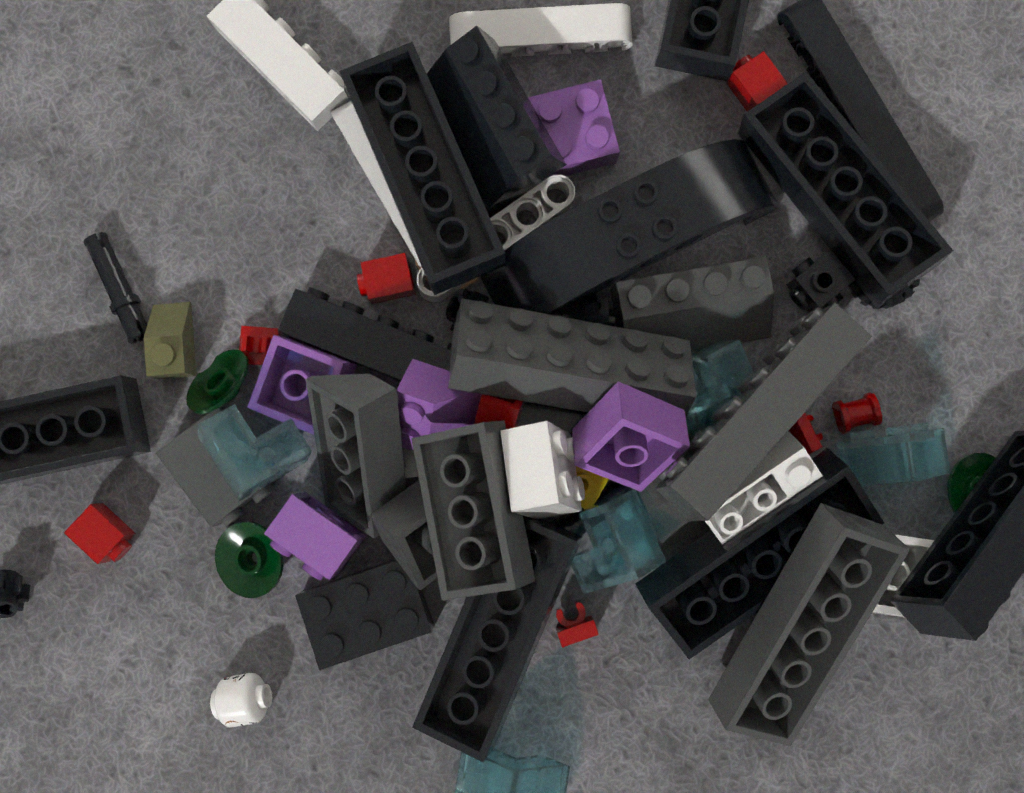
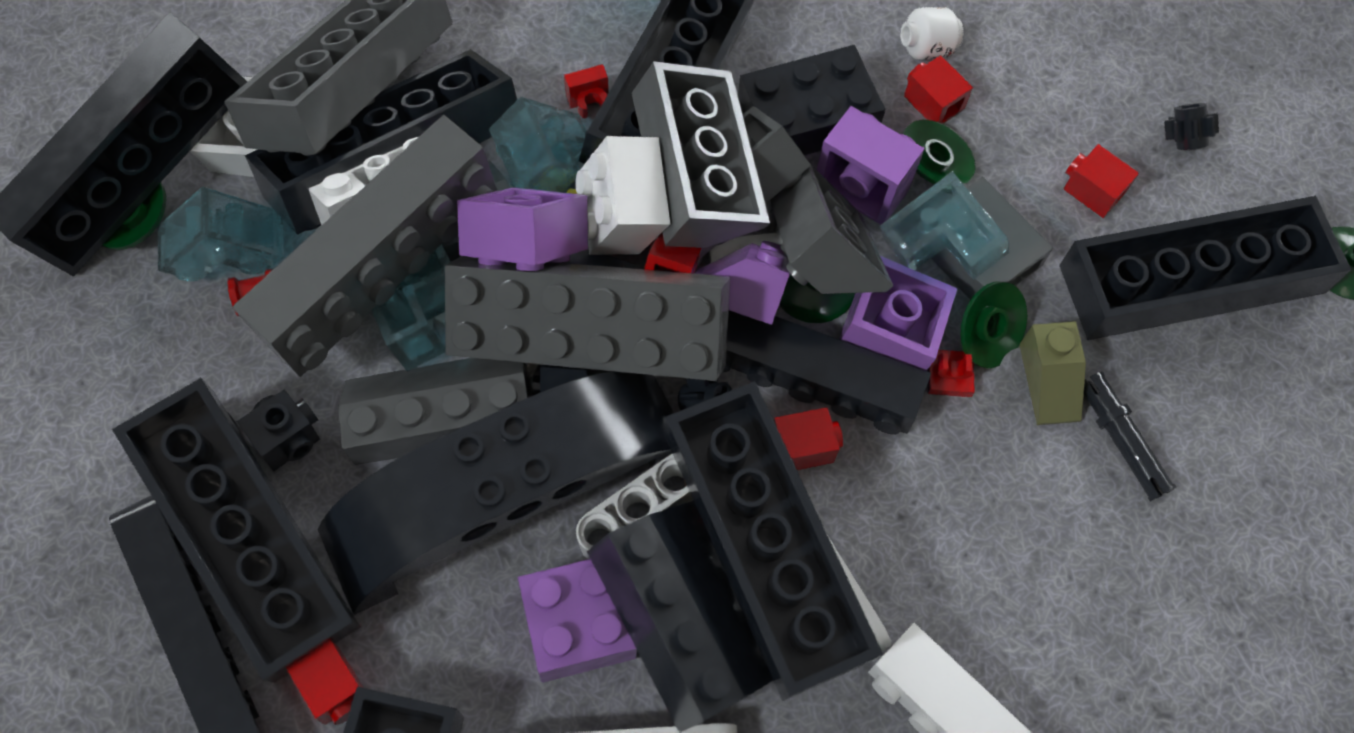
camera: 175 degrees right, 20 degrees down
(242, 632) = (937, 90): none -> red brick

